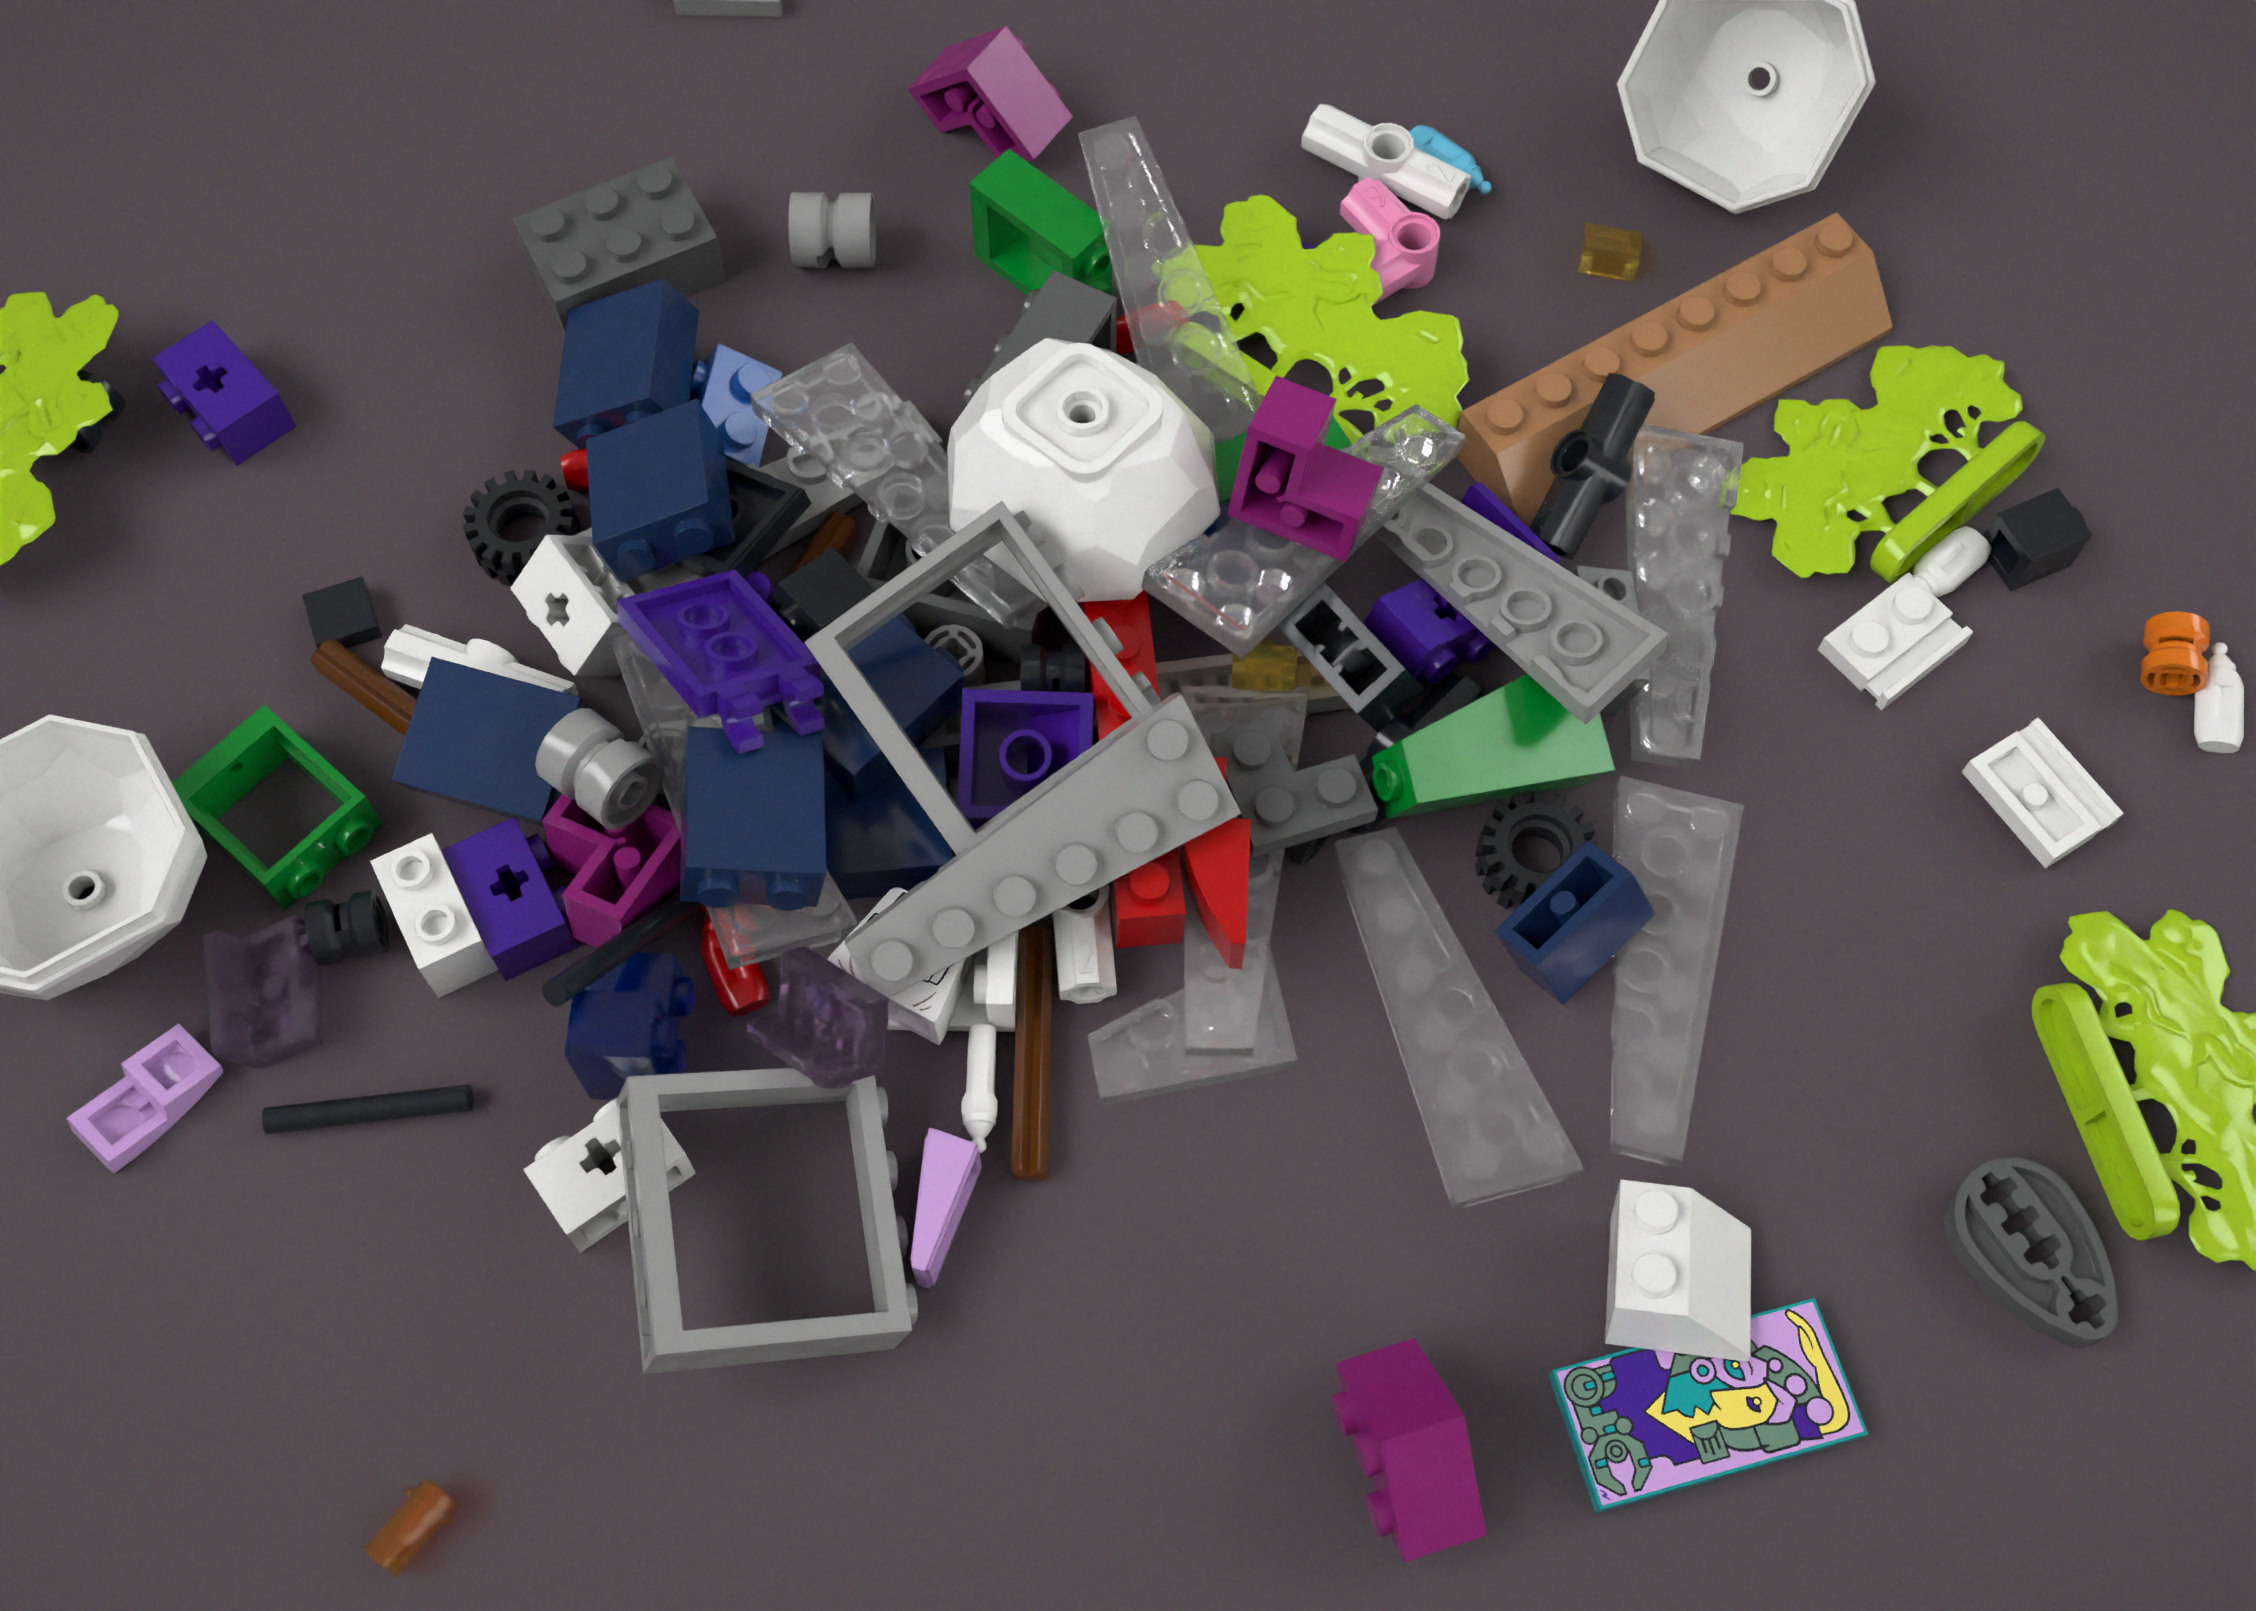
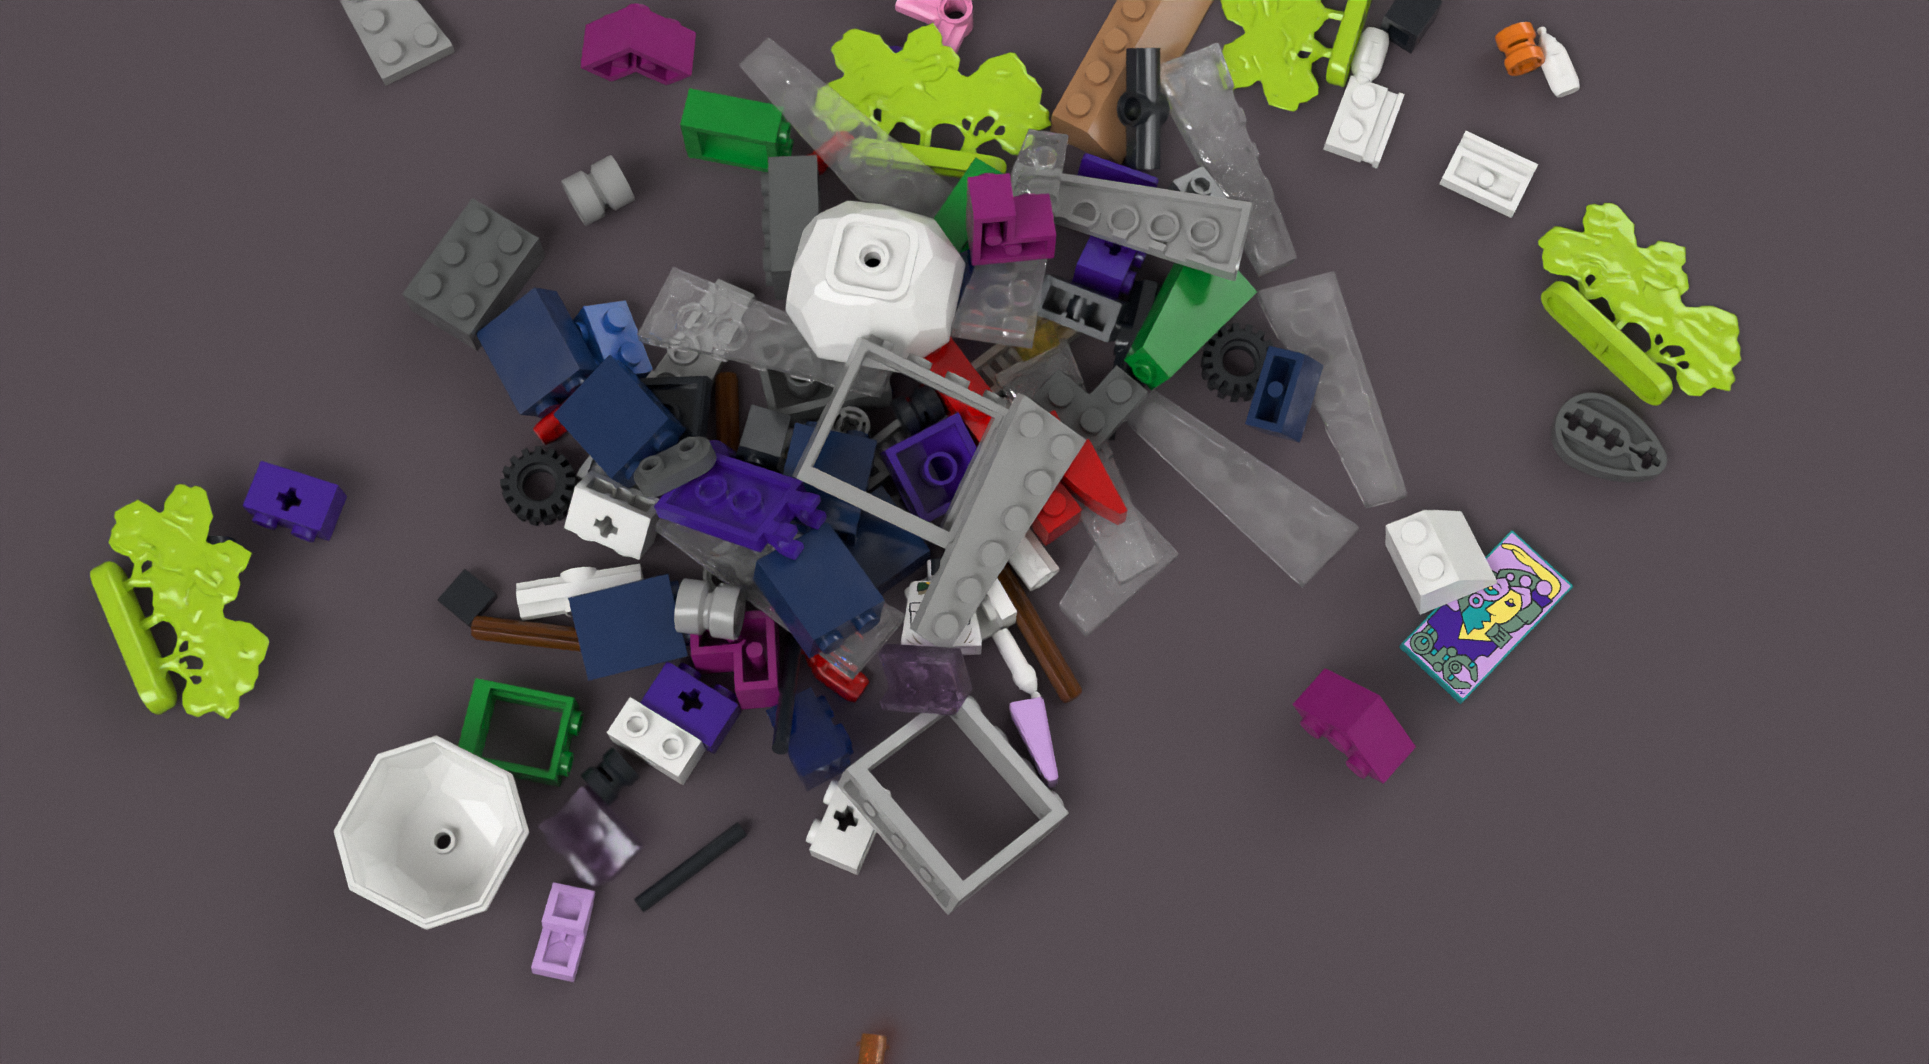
camera: 30 degrees left, 10 degrees up
(692, 569) = (675, 466): none -> dark grey plate

